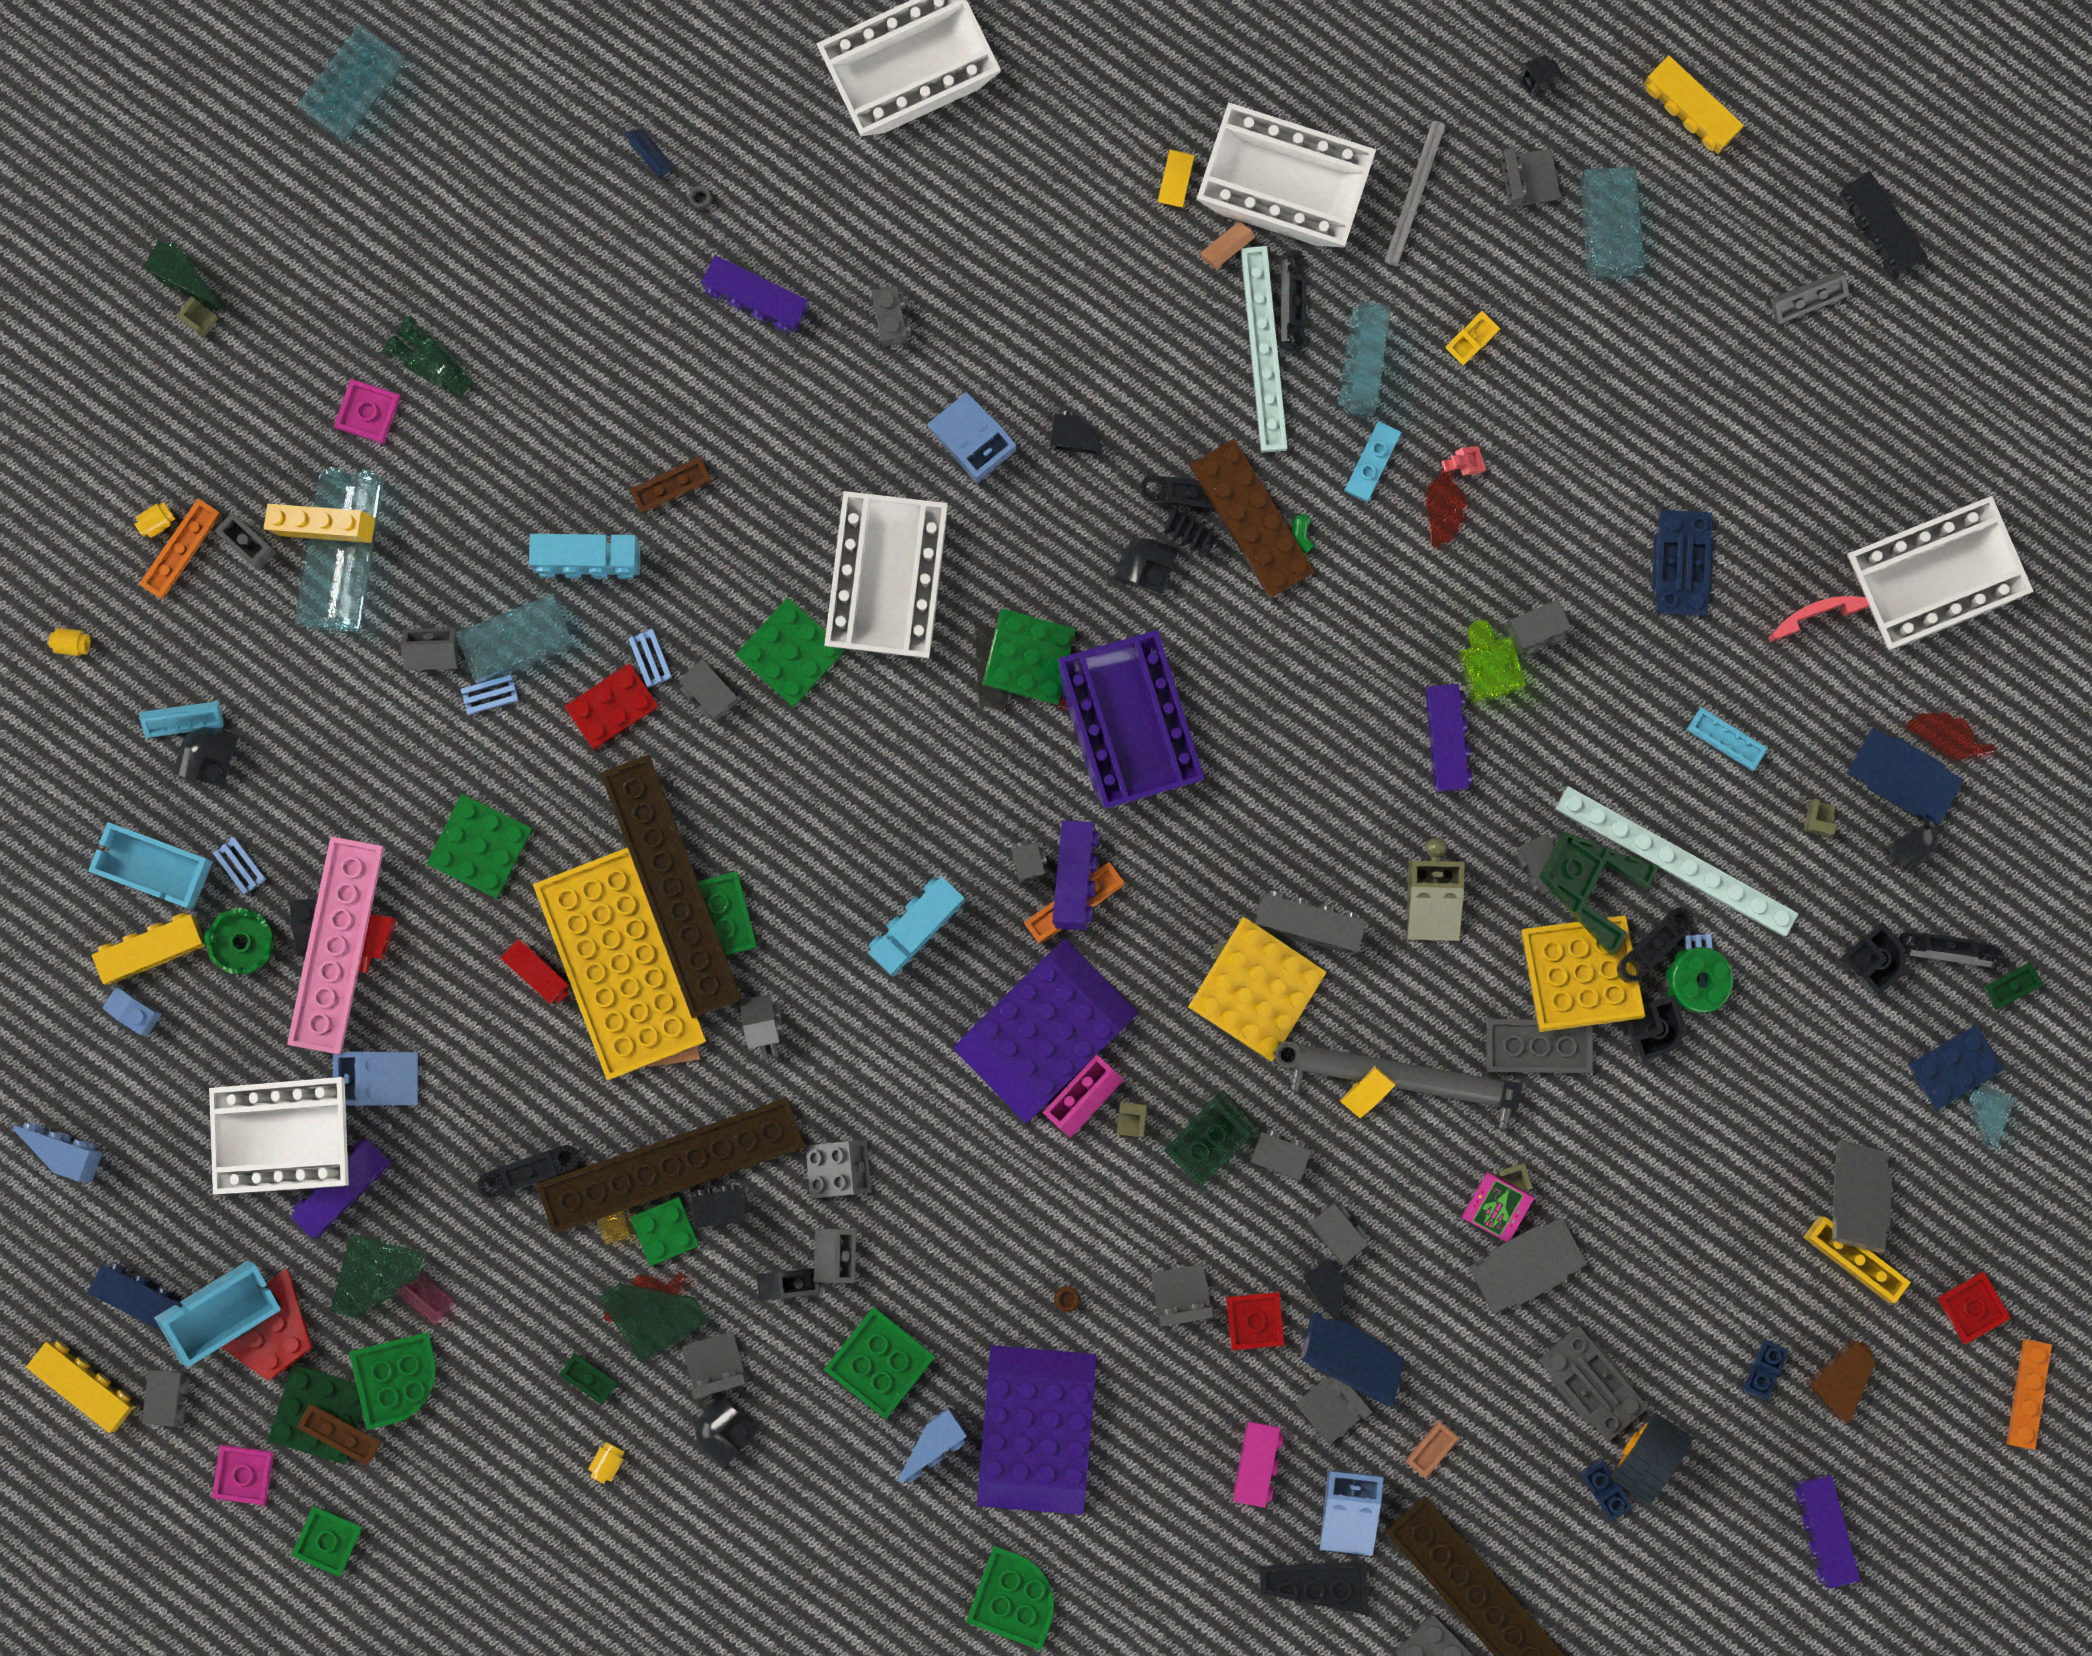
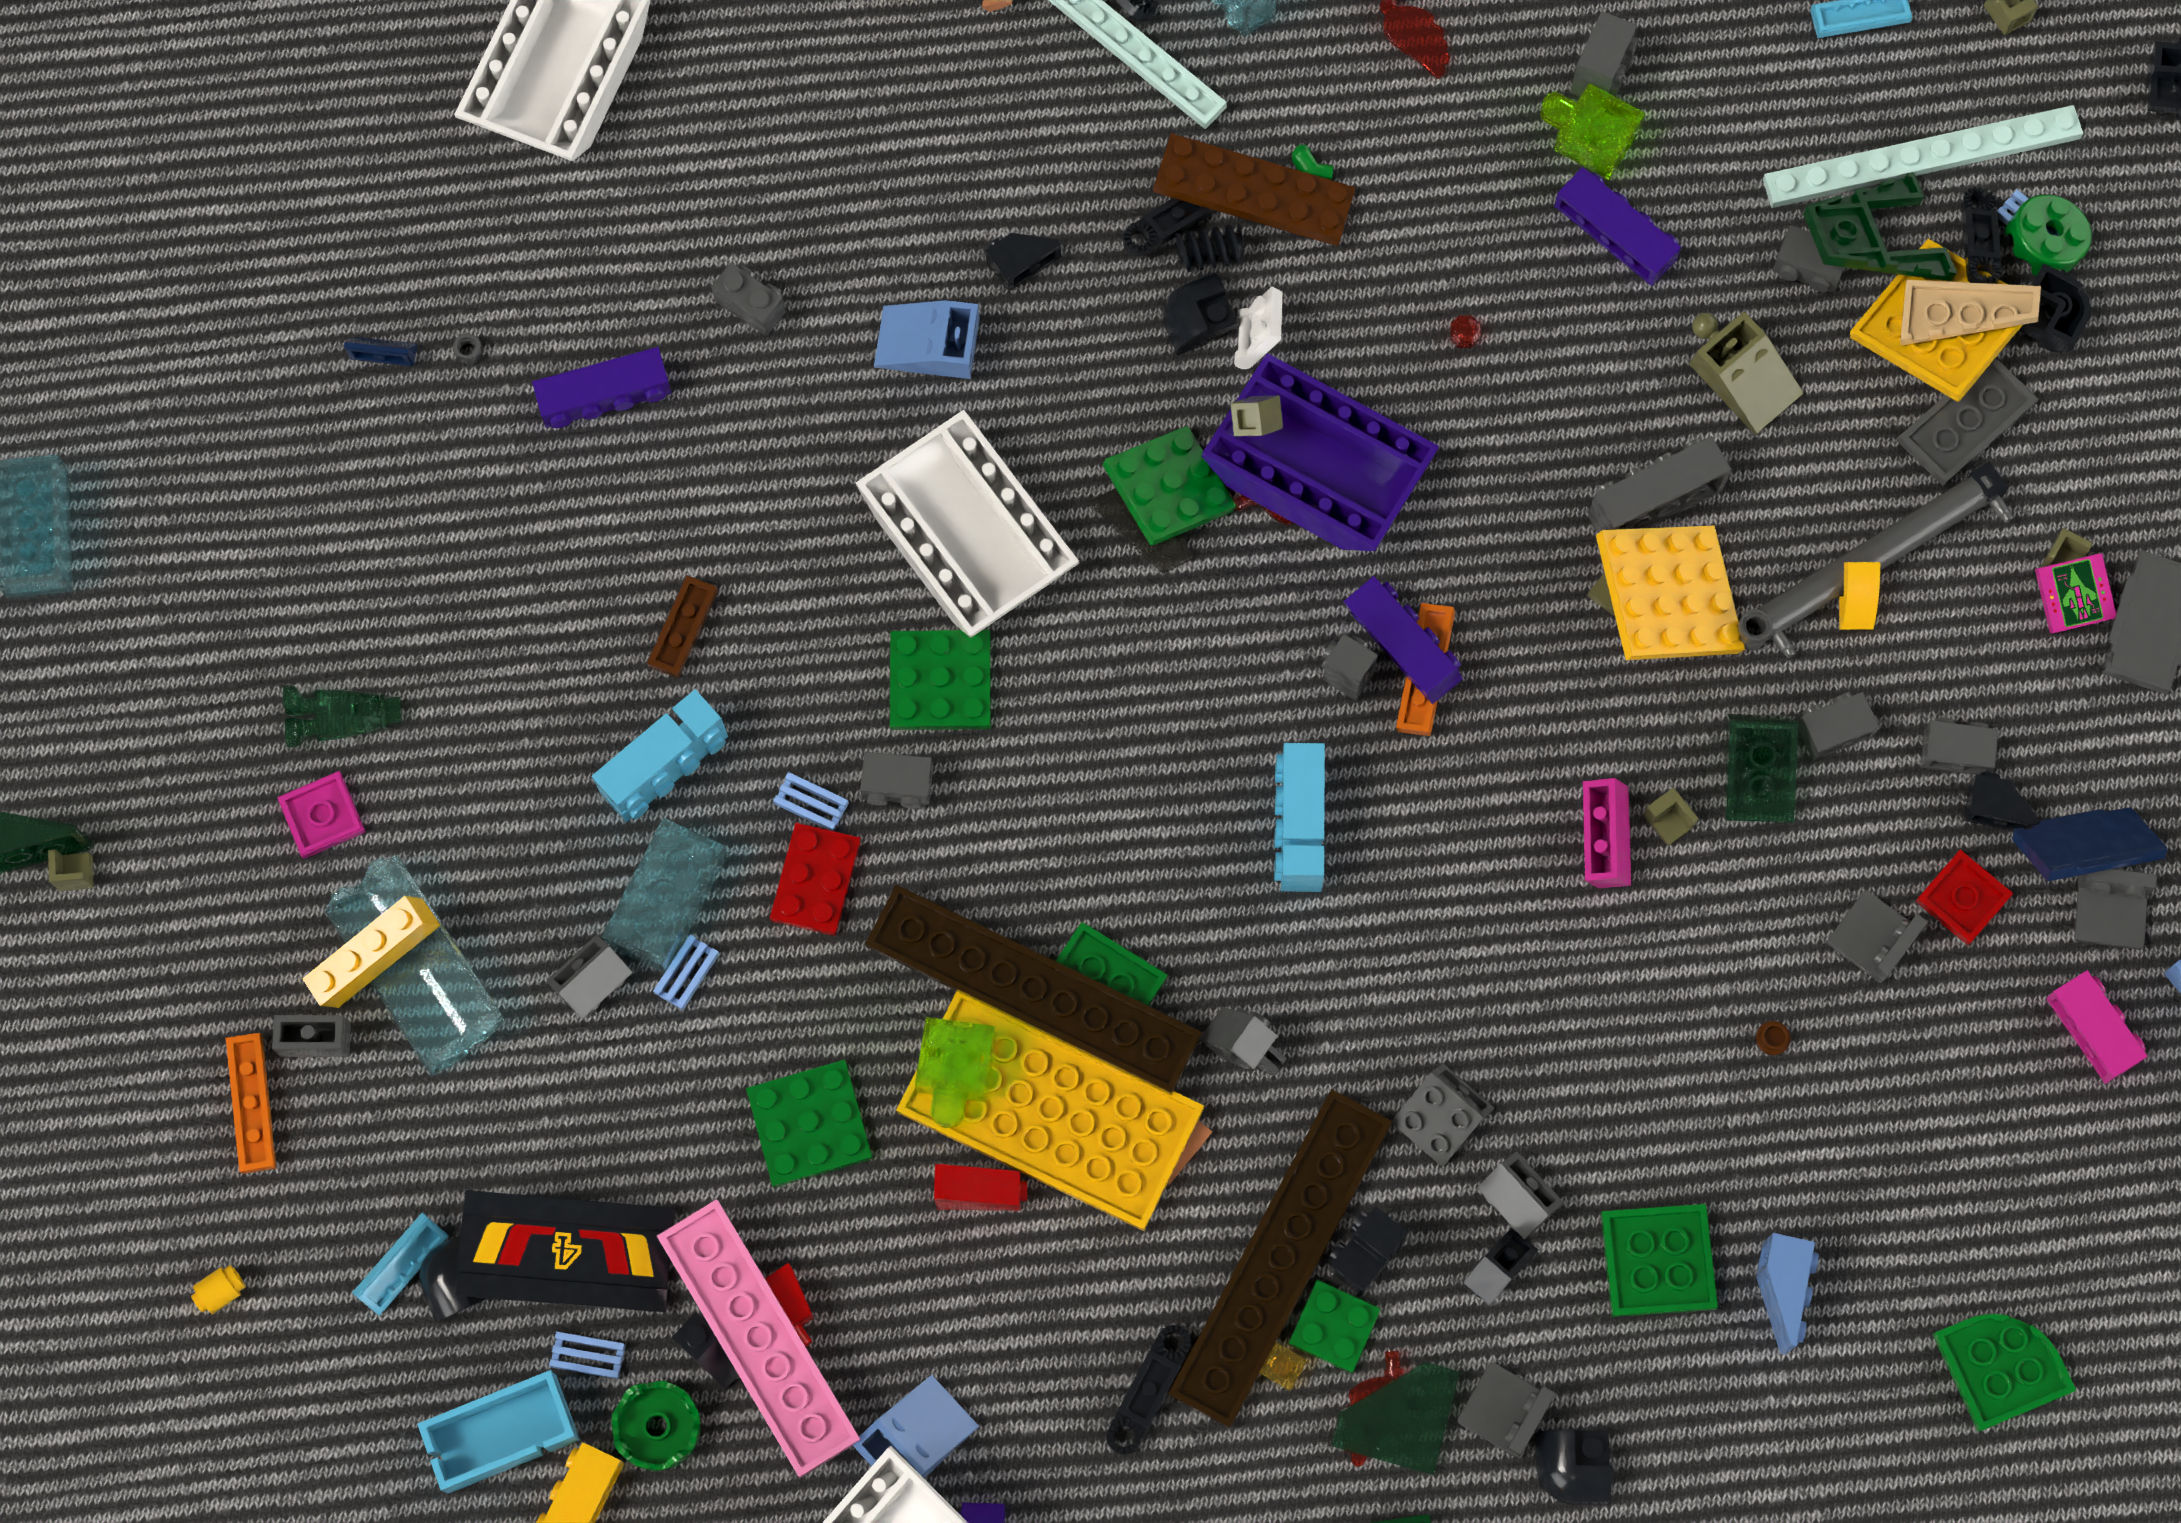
camera: 35 degrees left, 10 degrees down
(154, 520) = (200, 1097): yellow brick -> none
(273, 797) = (563, 1251): none -> black hinge
(582, 889) = (953, 1067): none -> clear neon green brick
(1036, 1429) = (1867, 1186): dark purple slope -> none
(1045, 1030) = (1512, 811): dark purple slope -> none
(1110, 665) = (1256, 415): none -> olive panel
(1169, 609) = (1258, 328): none -> white plate
(1294, 720) = (1465, 331): none -> clear red tile
(1372, 461) = (1313, 51): medium azure plate -> none
(1591, 975) = (1961, 308): none -> tan wing

